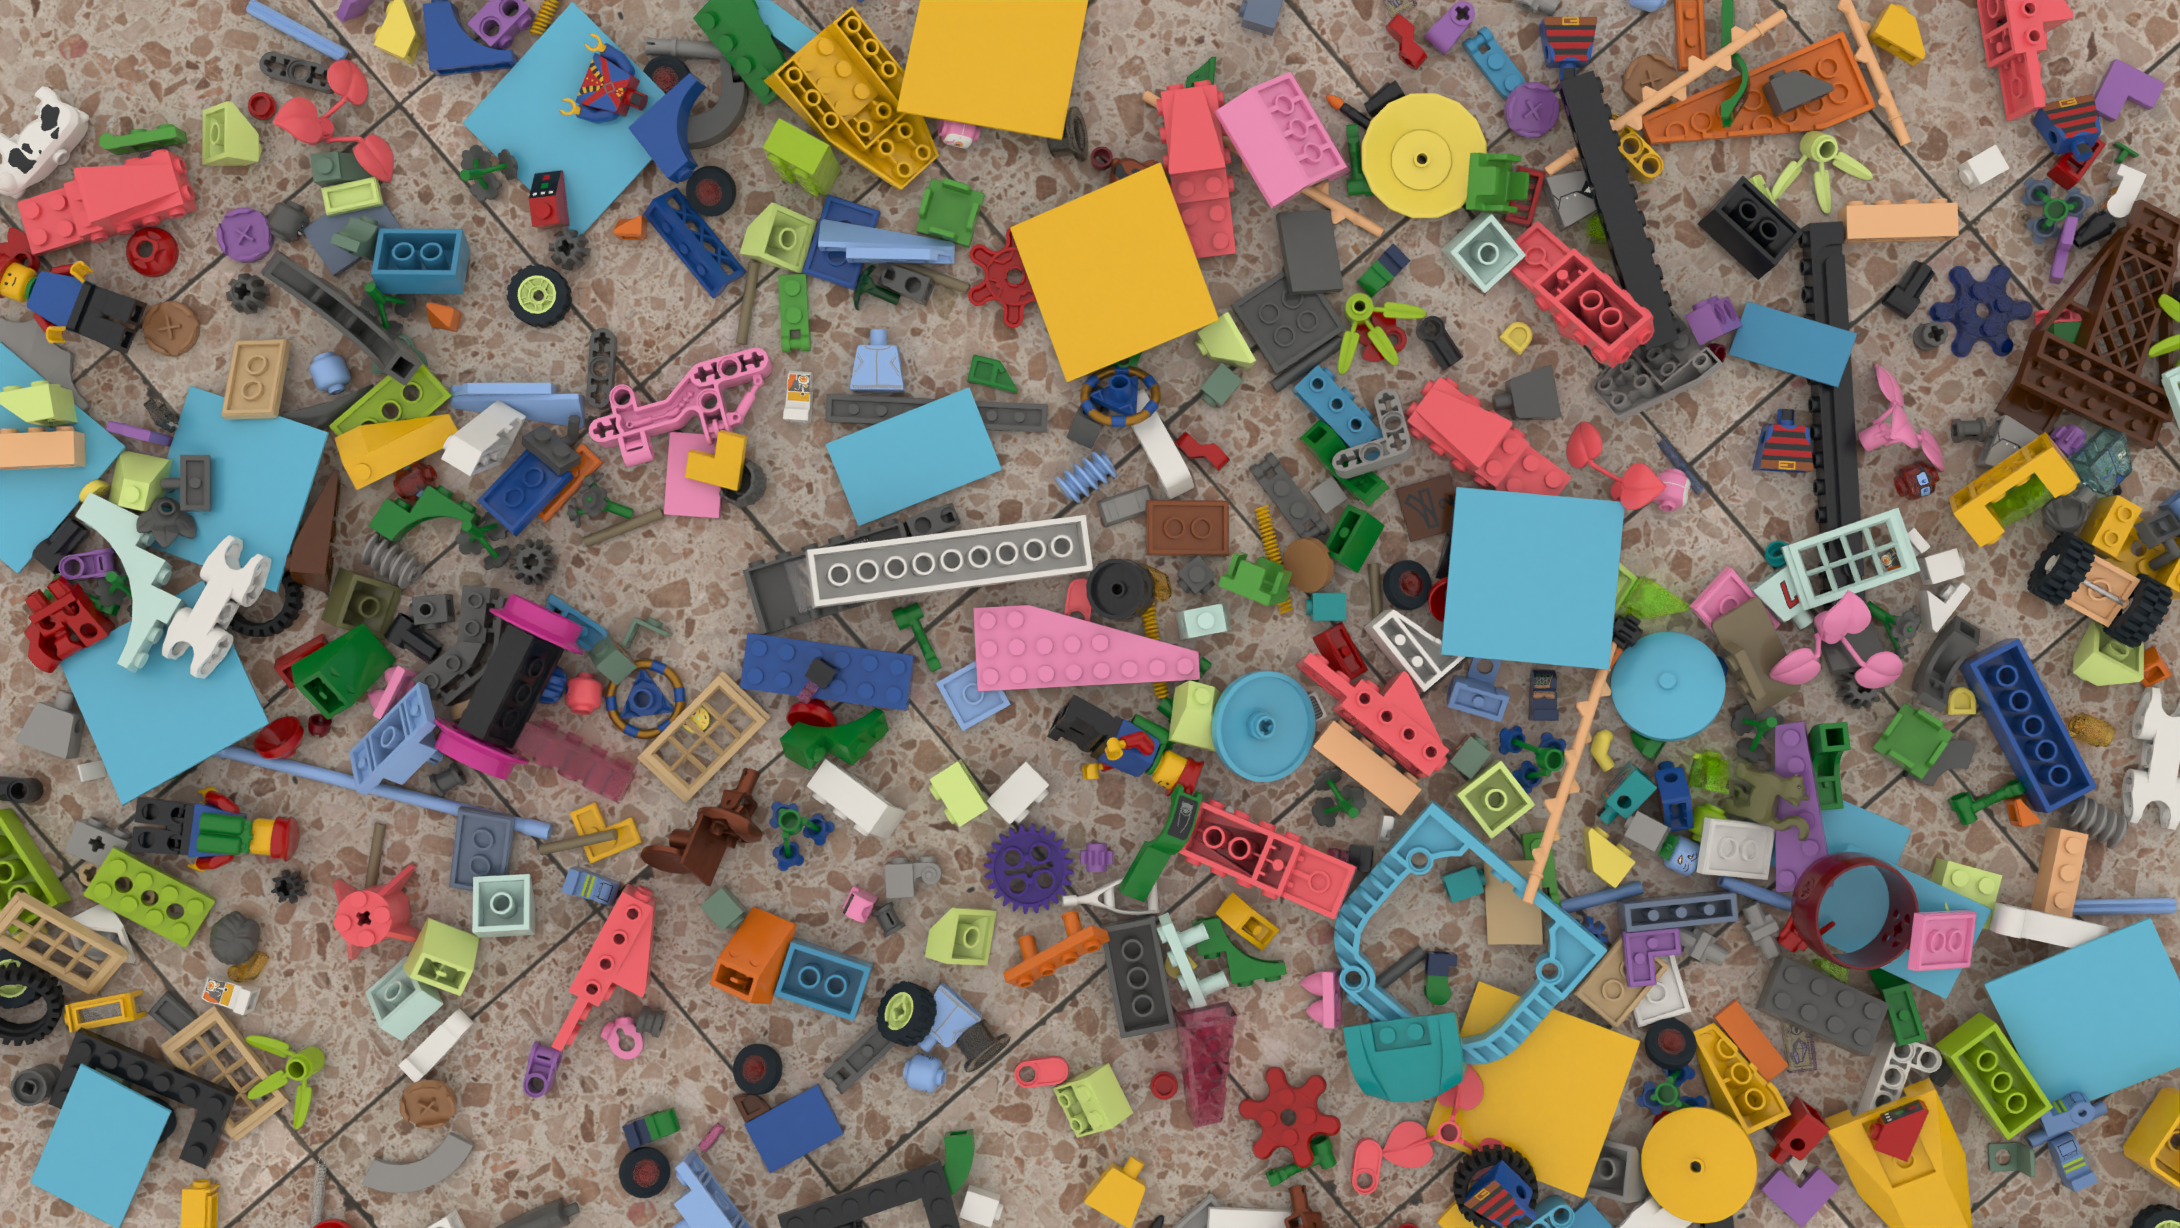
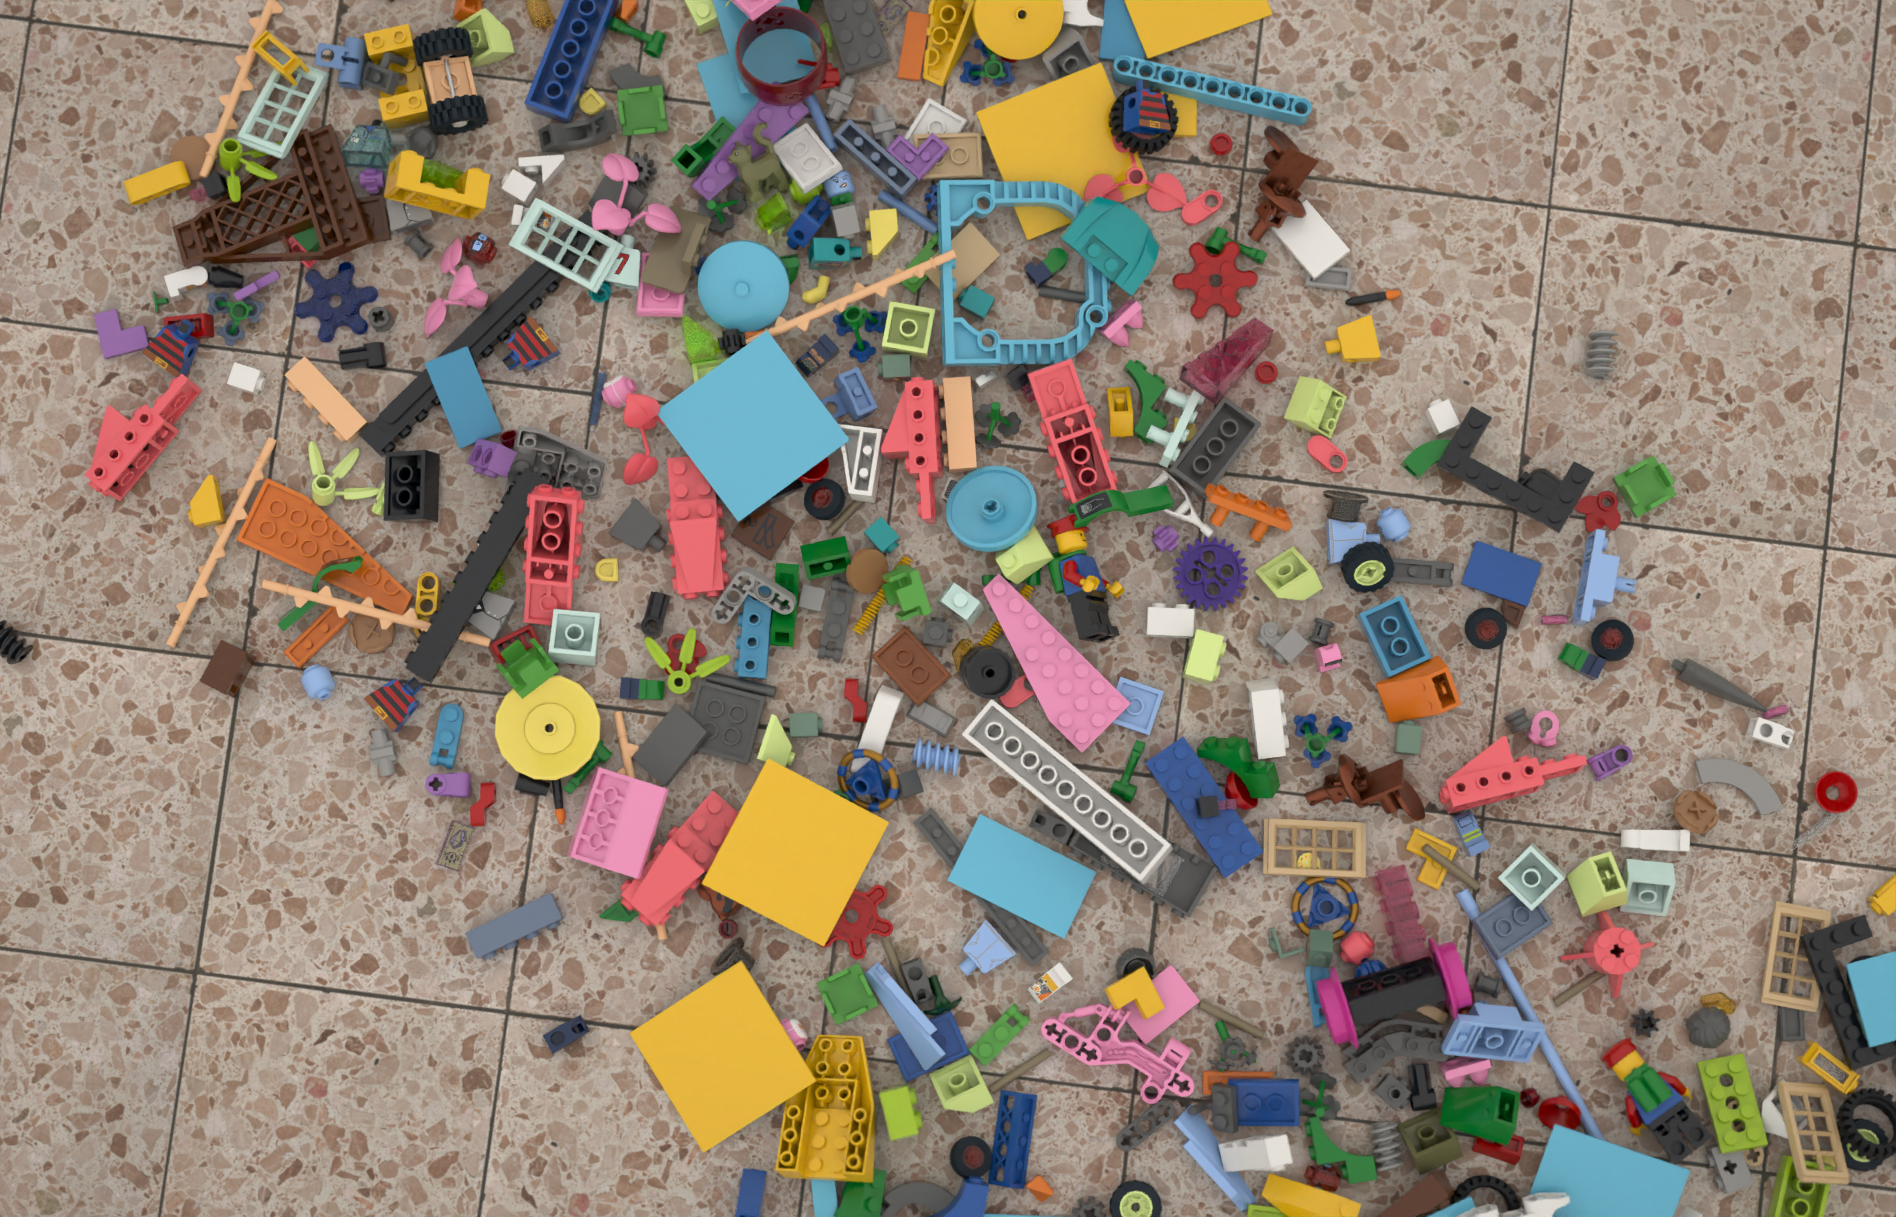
camera: 135 degrees left, 5 degrees down
(230, 994) = (1744, 998): white leg -> none
(298, 1068) = (1746, 911): lime plant -> none
(991, 374) = (926, 876): green tile -> none
(1340, 651) = (902, 503): red slope -> none
(1531, 109) = (457, 688): medium lavender tile -> none
(1670, 1044) = (960, 92): black wheel -> none
(1793, 90) = (303, 536): dark grey slope -> none
(1904, 626) = (580, 176): dark grey plant -> none

